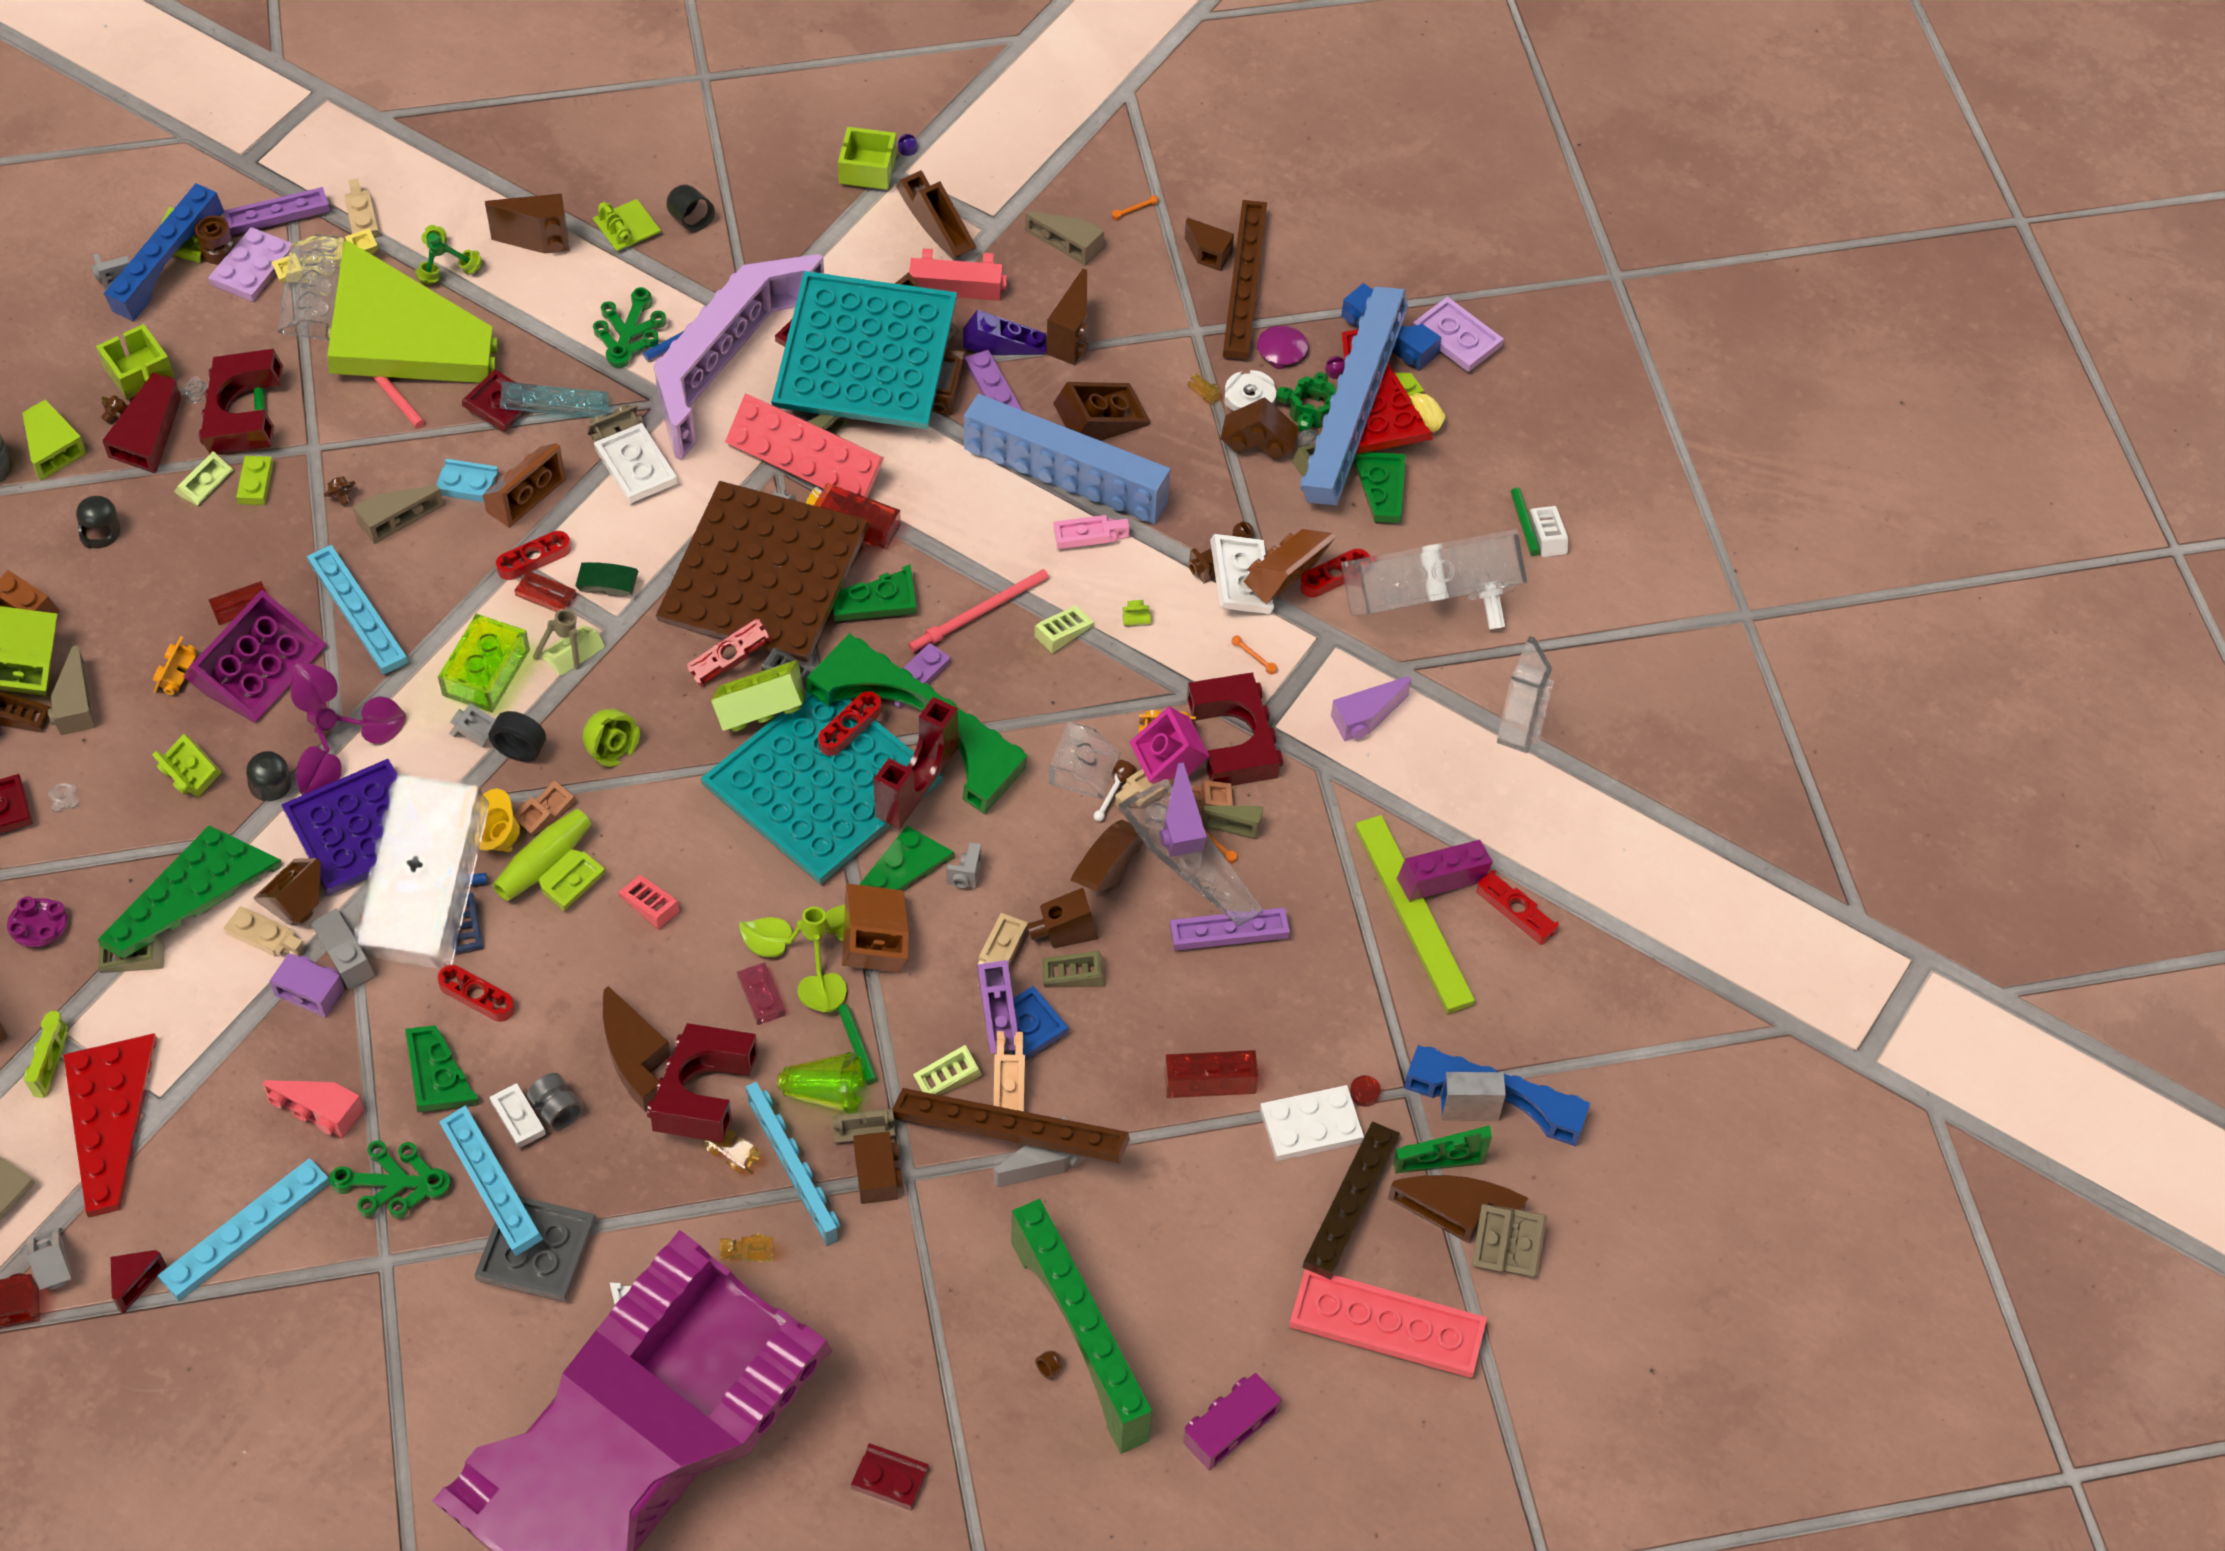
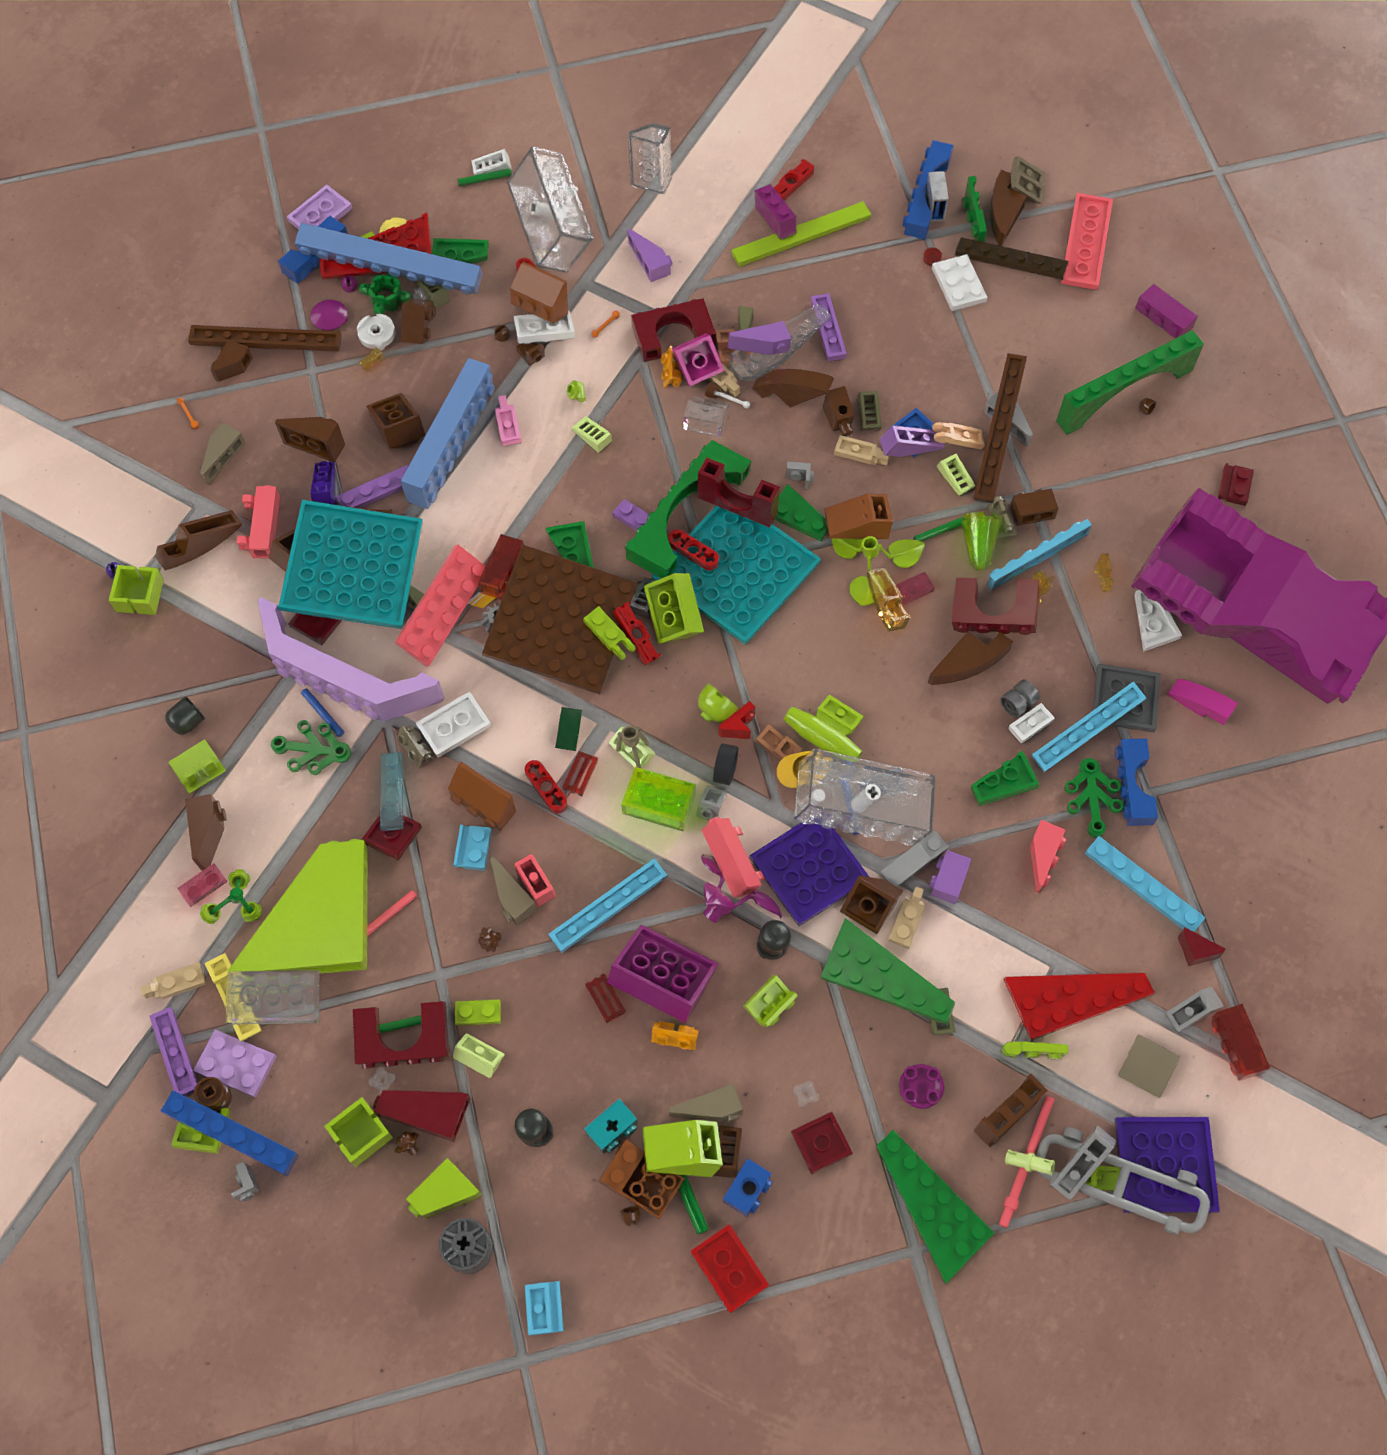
camera: 90 degrees left, 10 degrees up
(77, 596) = (615, 1114): none -> teal brick
(360, 1233) = (1139, 807): none -> blue arch
(385, 730) = (731, 857): none -> coral brick
(401, 530) = (534, 880): none -> coral brick
(471, 230) = (202, 885): none -> clear pink plate
(479, 1004) = (945, 761): red beam -> none
(509, 1351) = (1203, 700): none -> dark pink slope
(579, 759) = (734, 725): none -> red slope
(656, 918) = (856, 655): coral slope -> none
(729, 617) = (608, 632): none -> lime hinge
(742, 952) = (887, 599): none -> clear yellow slope
(935, 634) = (603, 510): coral bar -> none
(1211, 1074) = (938, 330): clear red brick -> none

